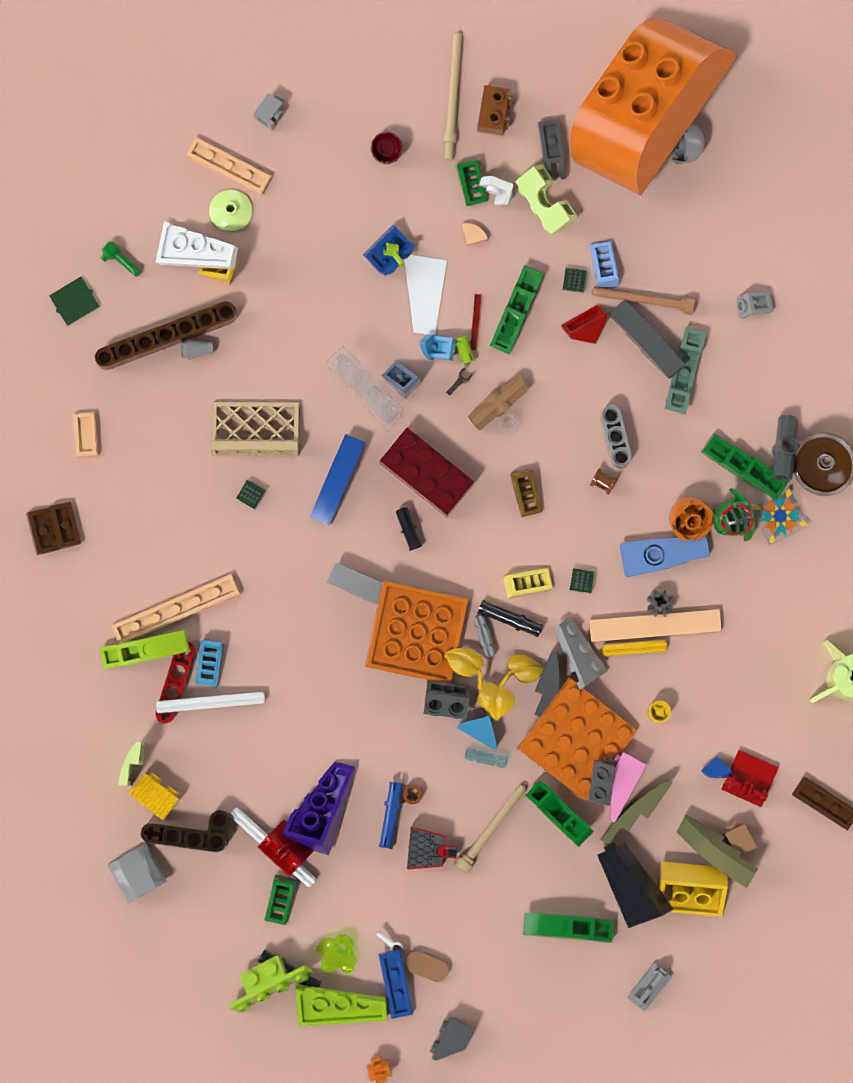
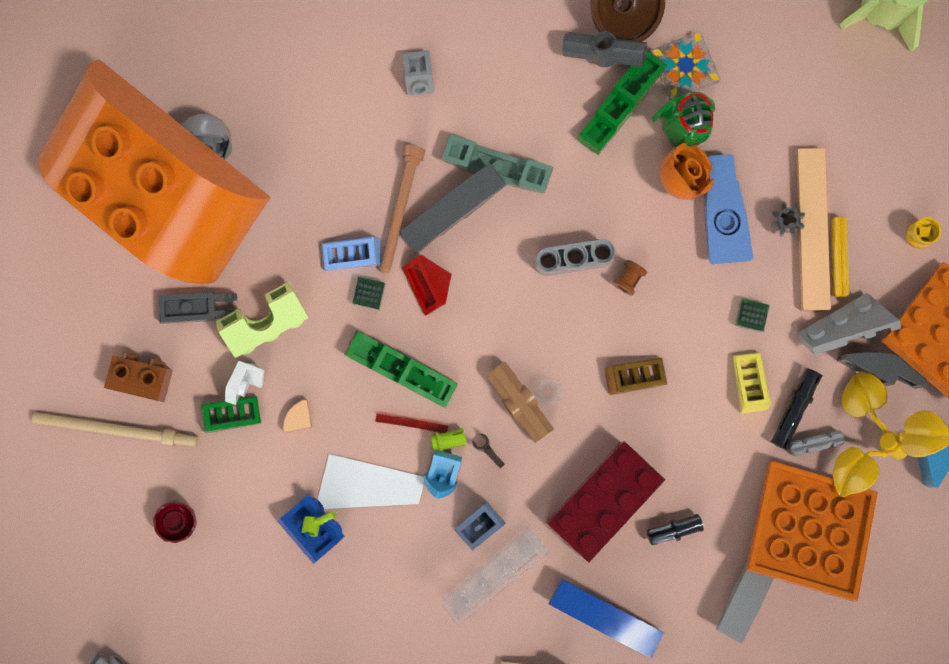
camera: 85 degrees left, 0 degrees up
(442, 699) = (899, 497): dark grey brick -> none

